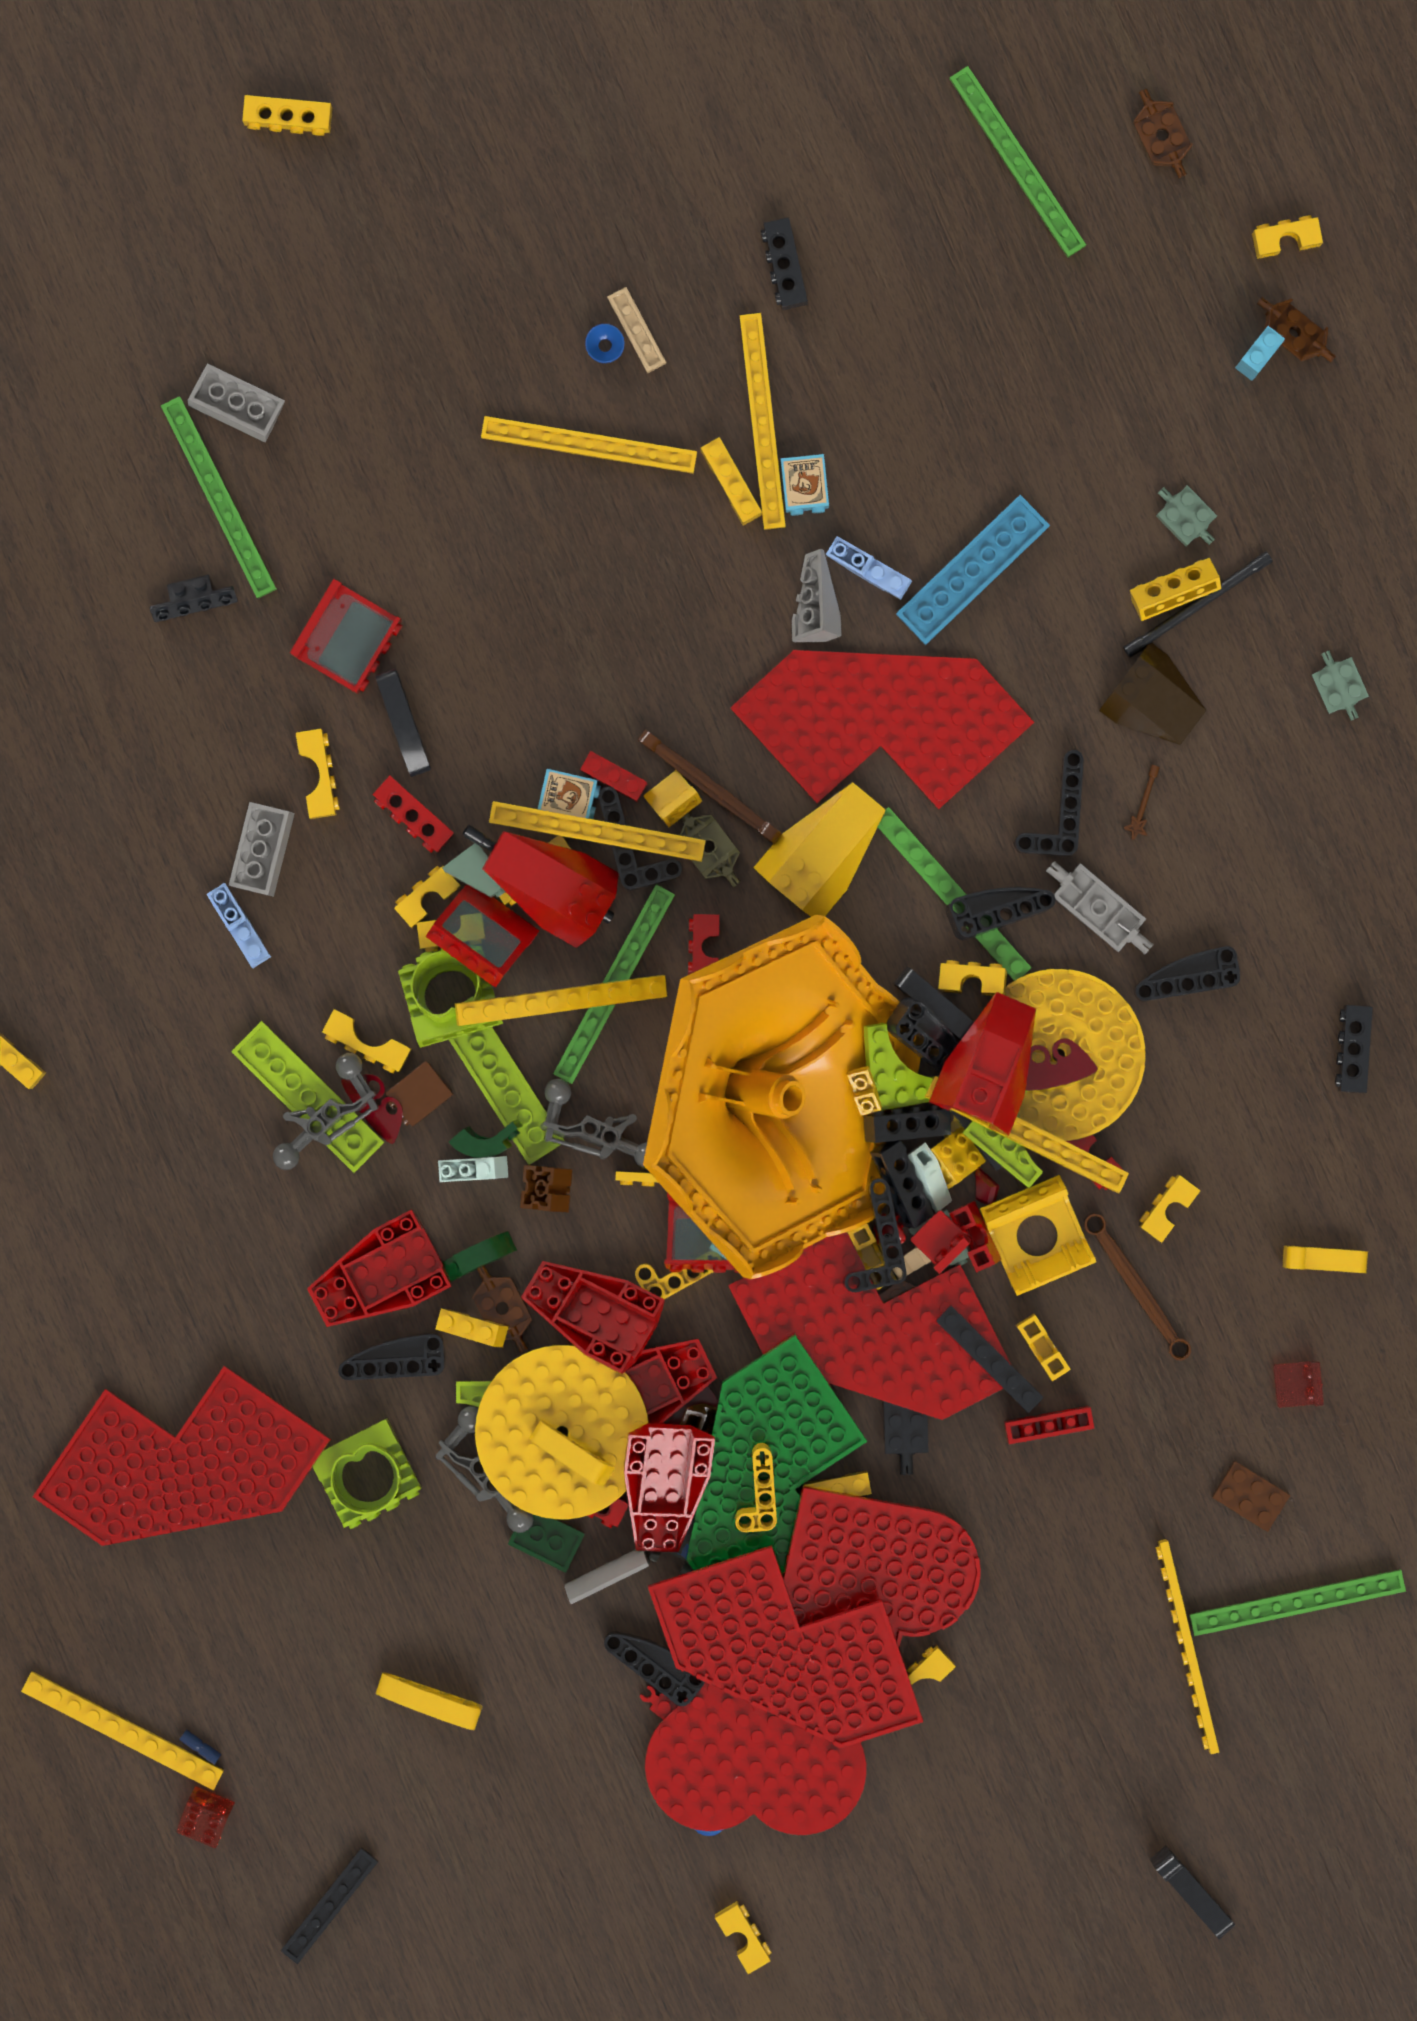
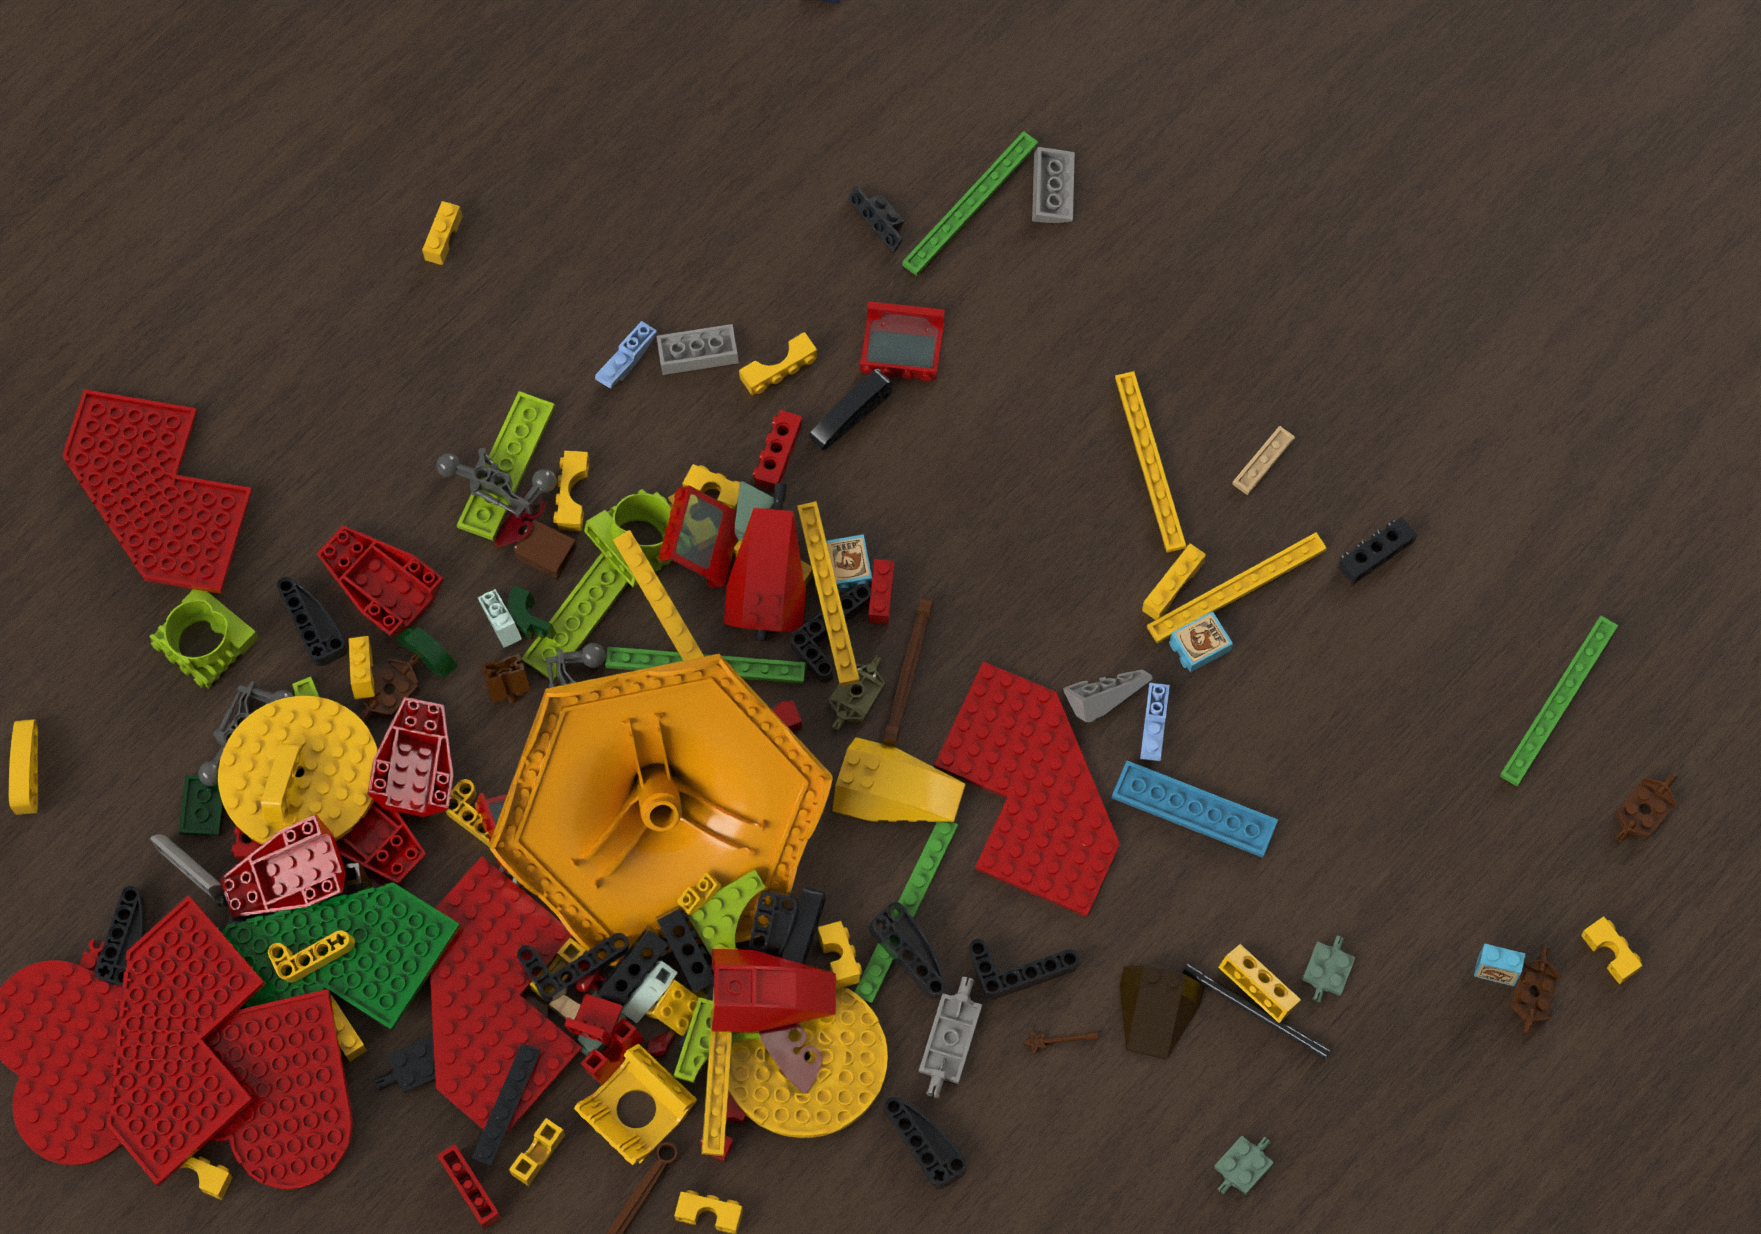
camera: 75 degrees right, 20 degrees down
(255, 105) = (1297, 104): yellow brick -> none
(600, 333) = (1242, 430): blue piece -> none
(672, 798) = (883, 645): yellow bracket -> none

